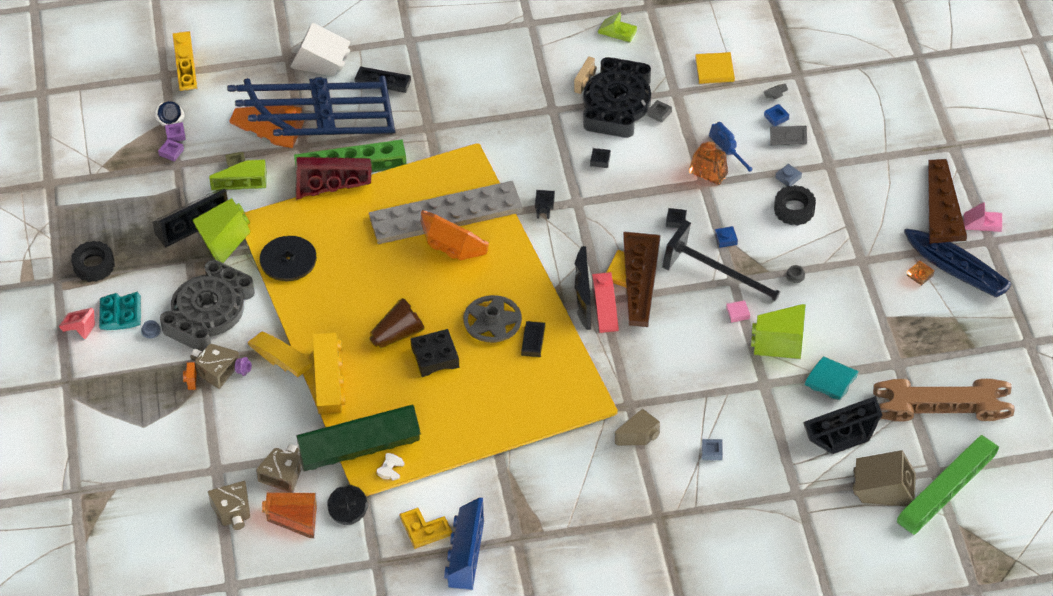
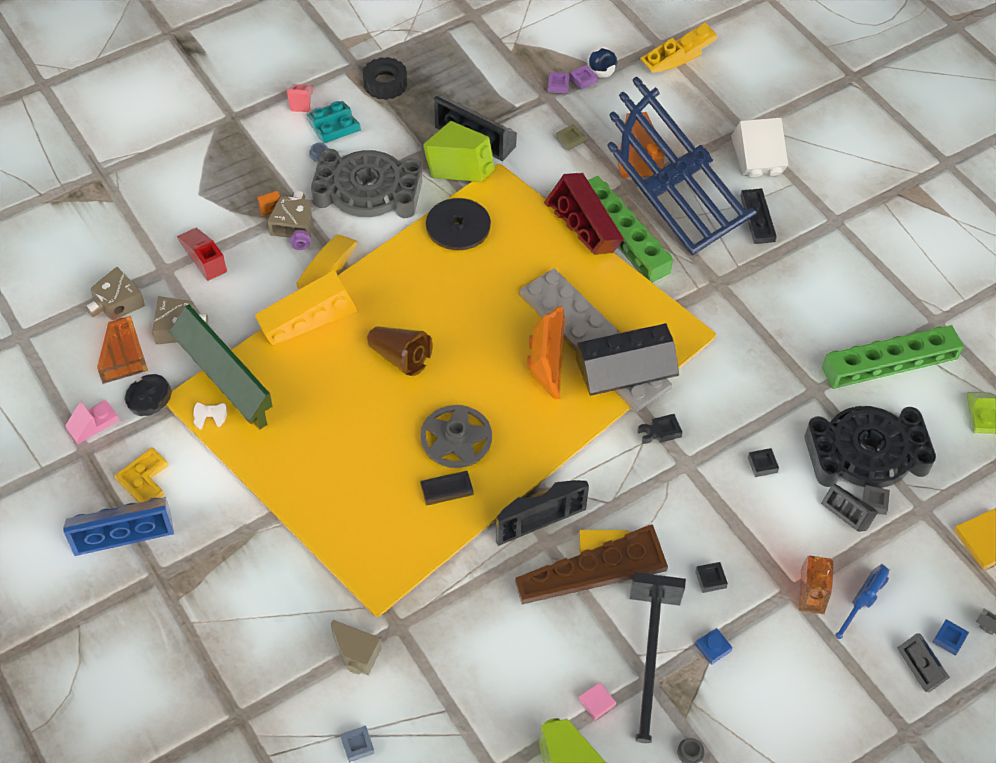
camera: 65 degrees right, 5 degrees up
(219, 432) = (203, 253): none -> red slope
(245, 175) = (554, 149): lime slope -> none
(351, 550) = (89, 422): none -> bright pink slope
(434, 352) = (381, 397): black brick -> none
(485, 193) = (627, 359): none -> slope
(550, 56) = (892, 356): none -> bright green brick
(584, 75) = (888, 400): tan plate -> none
(605, 302) = (538, 544): coral slope -> none
(674, 126) = (868, 511): none -> black slope
(788, 175) = (858, 687): sand blue plate -> none
(795, 193) = (820, 695): black tyre -> none

